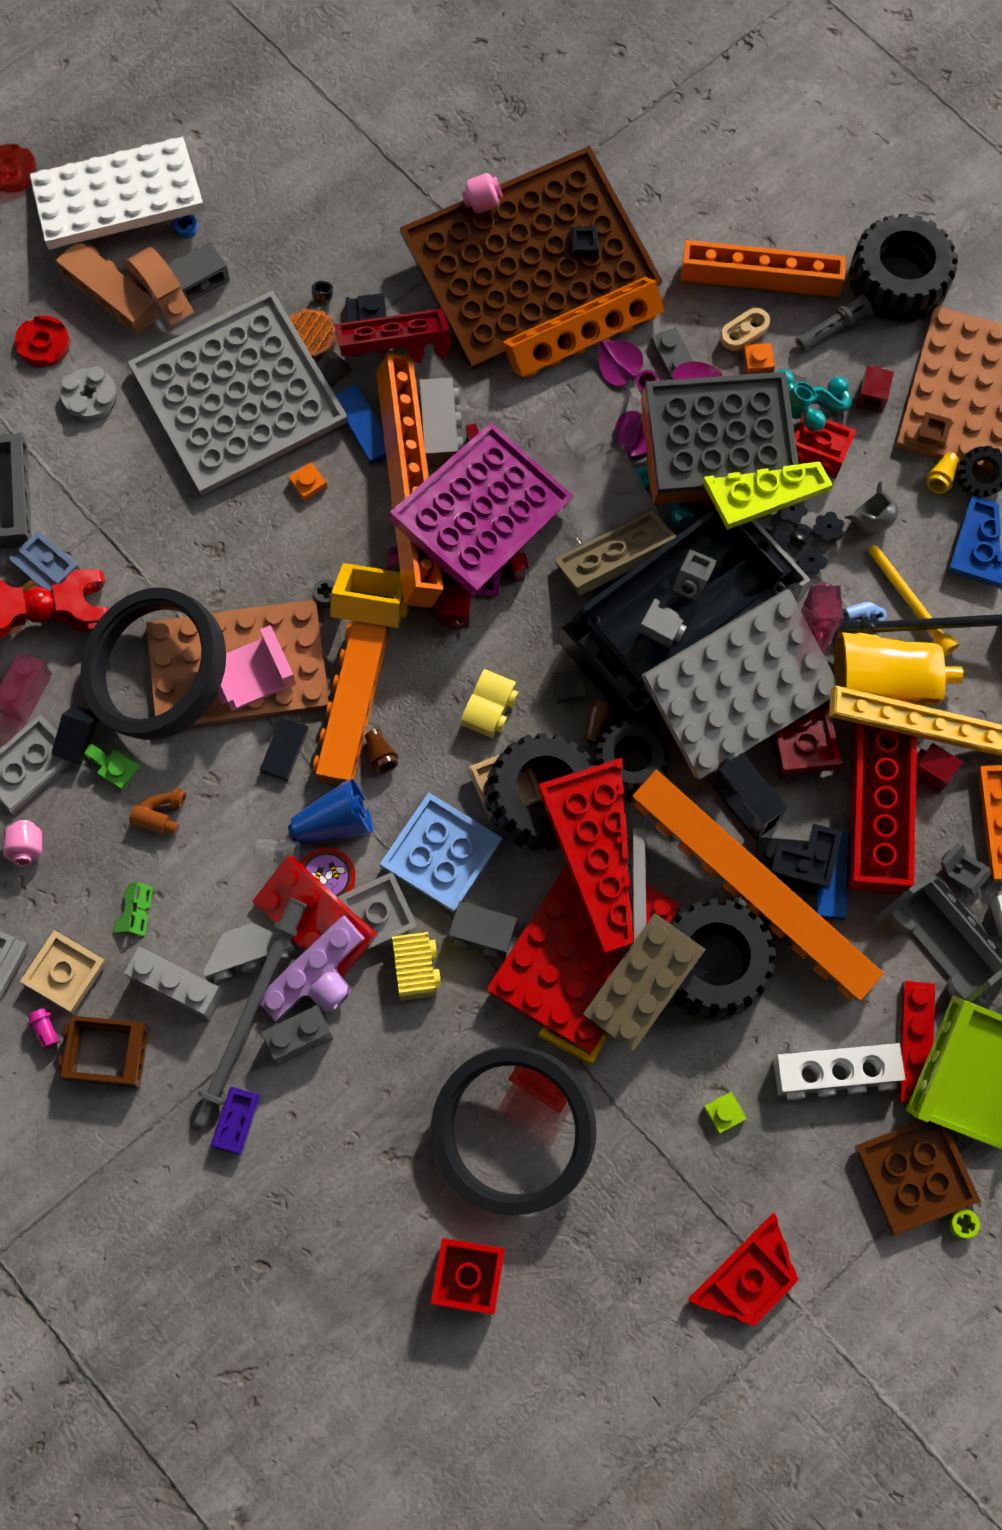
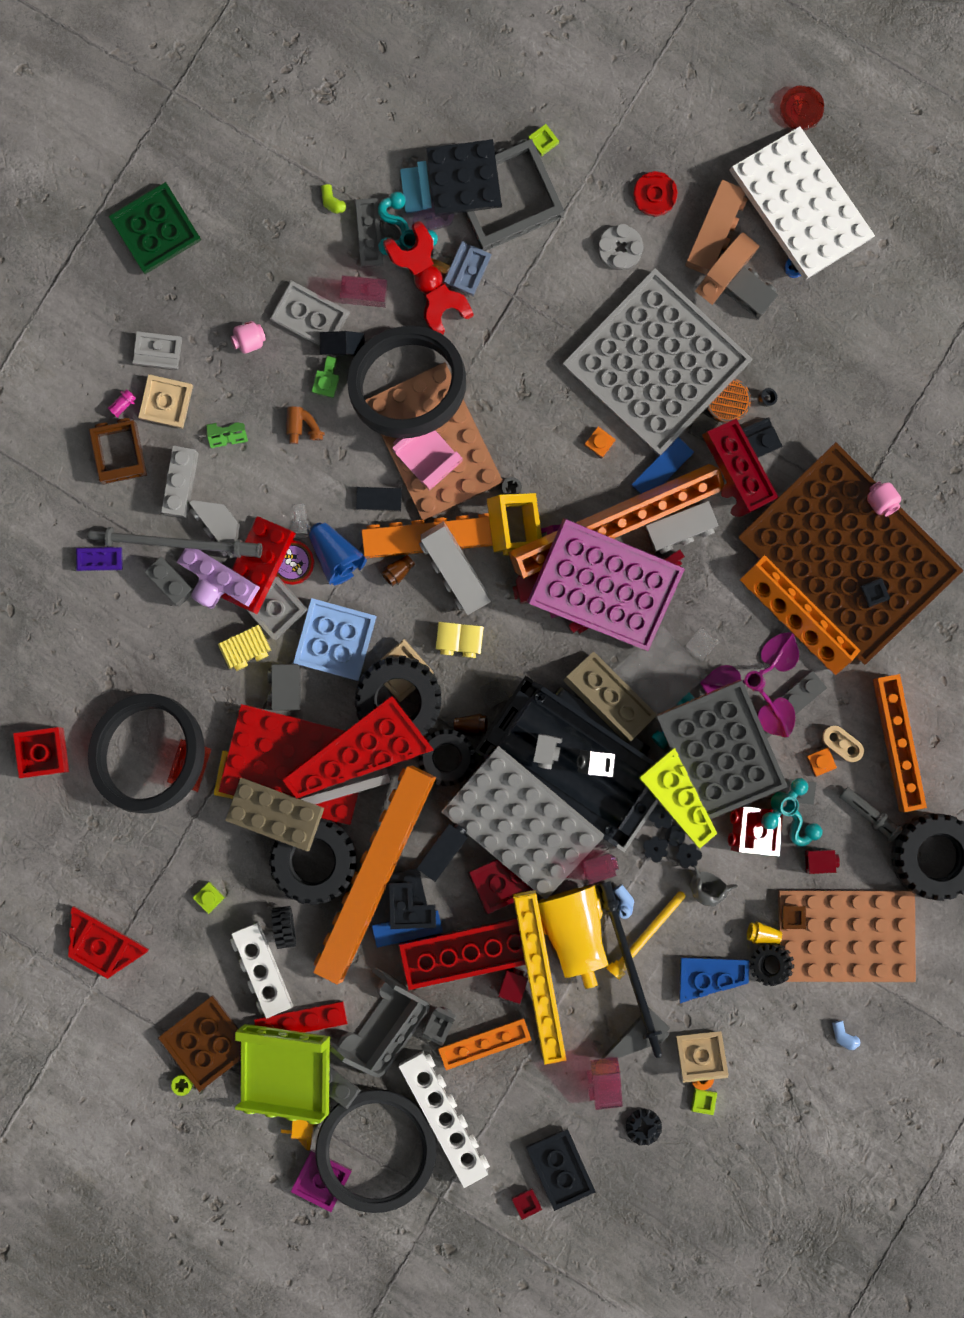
camera: 70 degrees right, 15 degrees up
(401, 676) = (455, 568): none -> light grey brick
(791, 1022) = (283, 927): none -> black tyre

